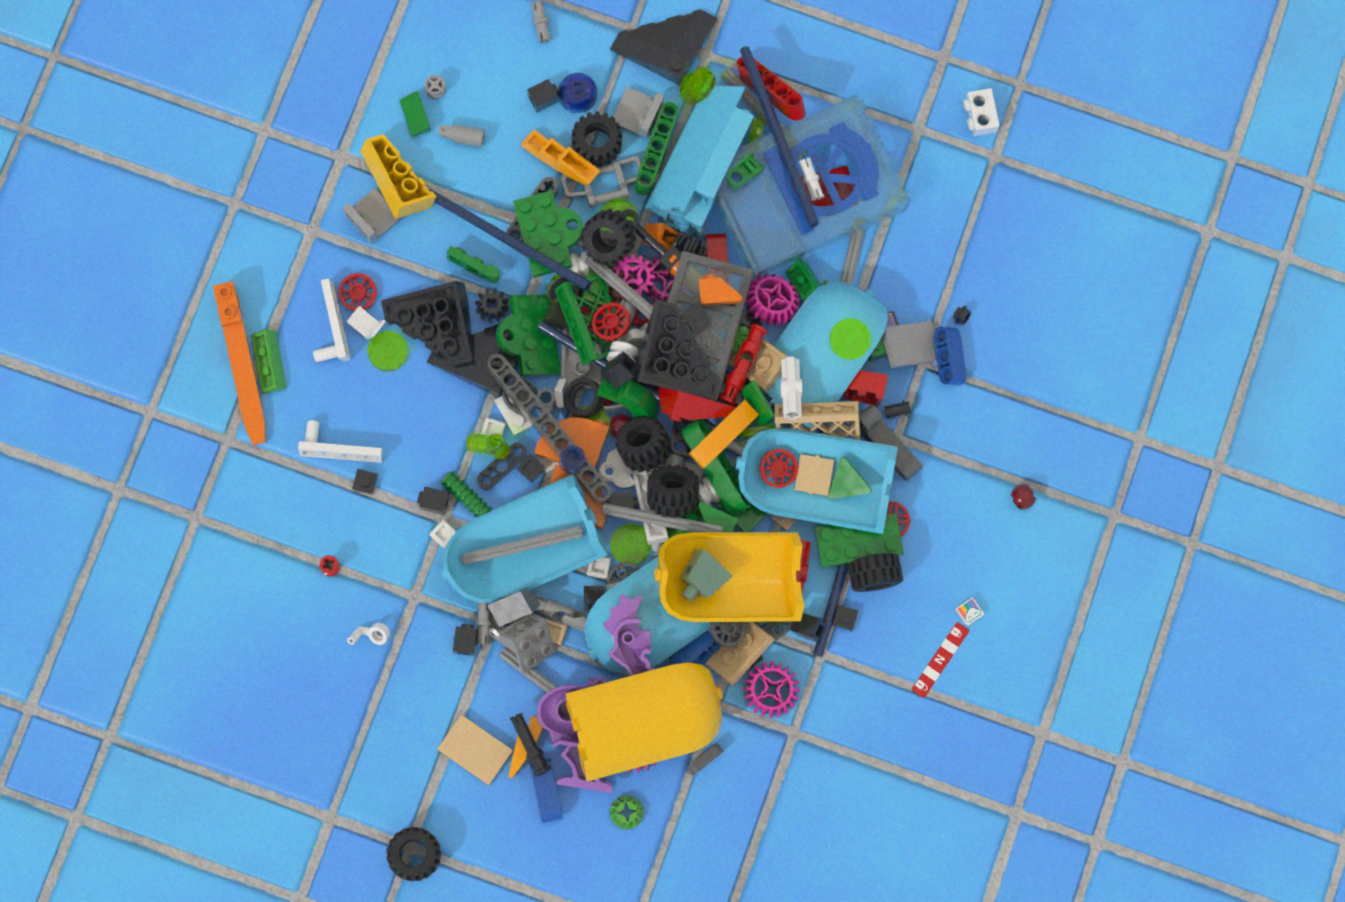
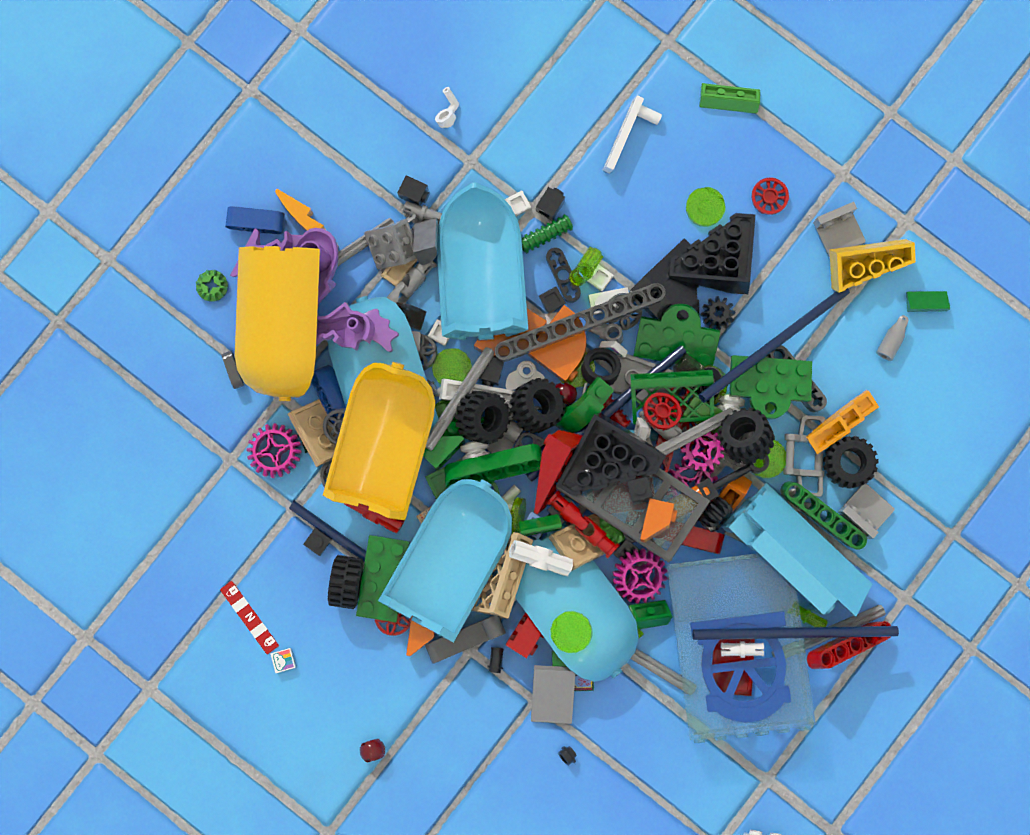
camera: 115 degrees right, 5 degrees up
(241, 361) = (774, 75): orange piece -> none
(336, 566) = (521, 86): red bush -> none
(340, 348) = (721, 164): white piece -> none
(364, 323) = (738, 192): white bracket -> none
(365, 481) = (589, 149): black plate -> none
(432, 854) = (229, 75): black tyre -> none
(435, 82) = (953, 326): light grey wheel -> none
(473, 265) = (761, 309): green hinge -> none
(475, 750) = (313, 170): tan tile -> none
(522, 545) = (480, 266): light grey axle -> none
(534, 754) = (287, 216): black pin -> none
(540, 22) = (985, 448): light grey pin -> none
(543, 95) = (910, 426): black brick -> none
(572, 459) = (540, 330): clear blue piece -> none
(578, 93) = (903, 460): clear blue cylinder -> none
(618, 347) = (627, 412): white wheel -> none
(619, 370) = (611, 401): black brick -> none
(667, 46) = (925, 563): black slope -> none
(697, 85) = (875, 576): clear neon green tile -> none
(703, 575) = (389, 414): sand green torso -> none
(723, 434) = (519, 480): light orange slope -> none
(747, 169) = (770, 588): green piece -> none
(778, 468) = (473, 524): red wheel -> none
(809, 628) = (316, 504): black brick -> none
(814, 475) = (456, 556): tan piece -> none
(847, 481) = (437, 584): piece -> none
(903, 488) = (418, 637): none -> orange slope
(949, 356) = (530, 728): blue beam -> none

